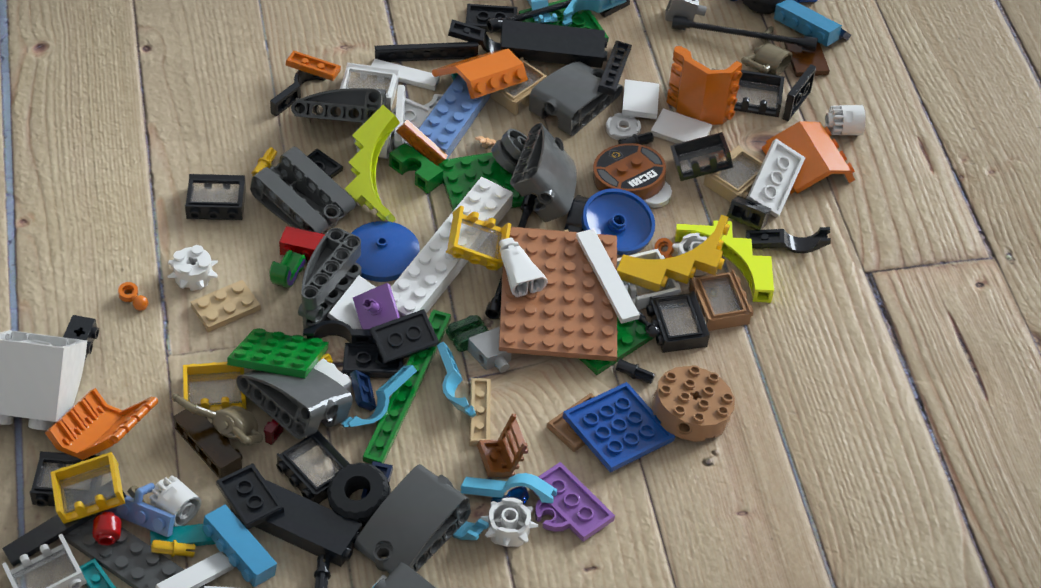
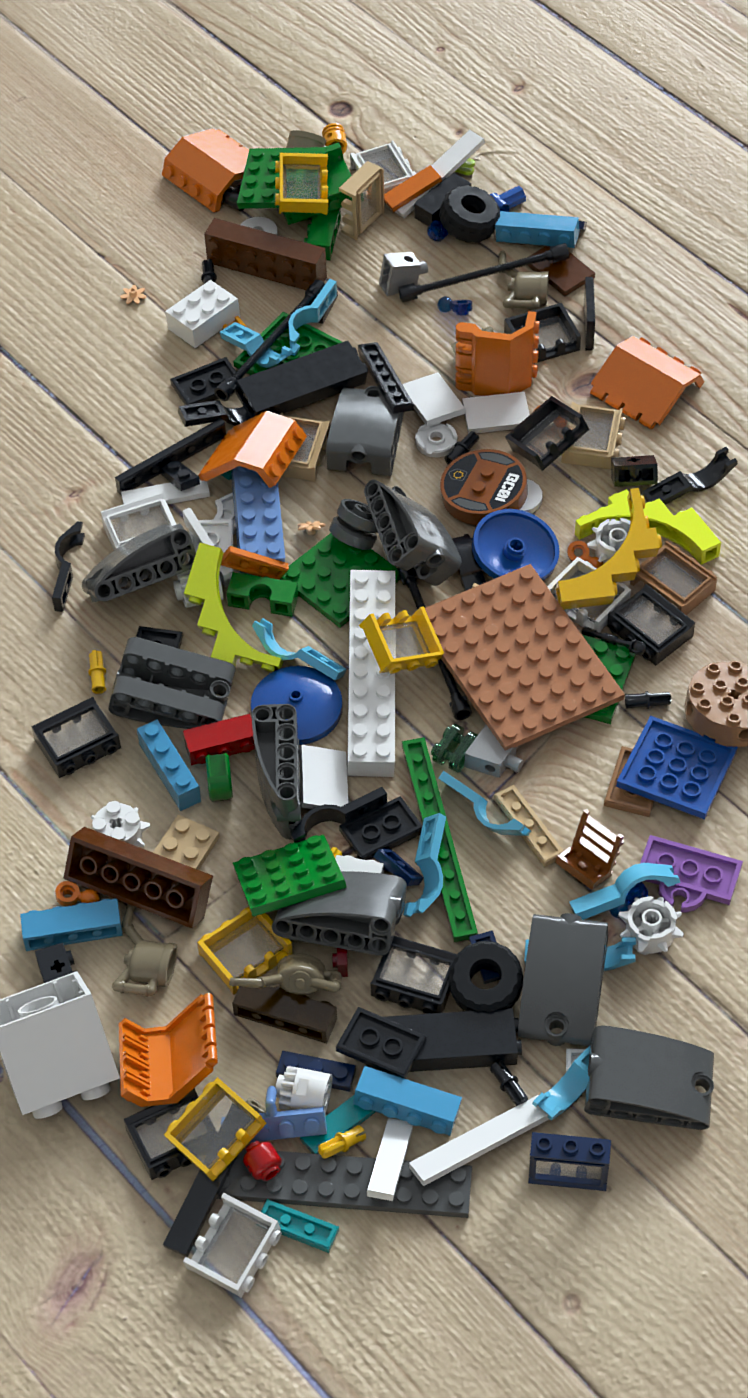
camera: 25 degrees left, 5 degrees up
(114, 312) = (71, 924): none -> dark azure brick
(141, 362) = (146, 963): none -> dark tan piece
(177, 303) = (138, 877): none -> reddish brown brick
(209, 500) = (341, 1072): none -> dark blue plate
(261, 244) = (169, 765): none -> dark azure brick
(313, 65) = (68, 533): orange tile -> none
(376, 306) = (350, 771): medium lavender tile -> none
(404, 337) = (401, 787): black tile -> none
(413, 221) = (264, 631): none -> medium azure piece
(422, 66) = (180, 475): none -> black plate
(520, 269) = (473, 653): white piece -> none
(607, 276) = (557, 612): white tile -> none
(710, 48) = (461, 307): none -> clear blue plate
(776, 177) = (635, 418): white plate -> none
(846, 120) = (655, 320): white gear -> none

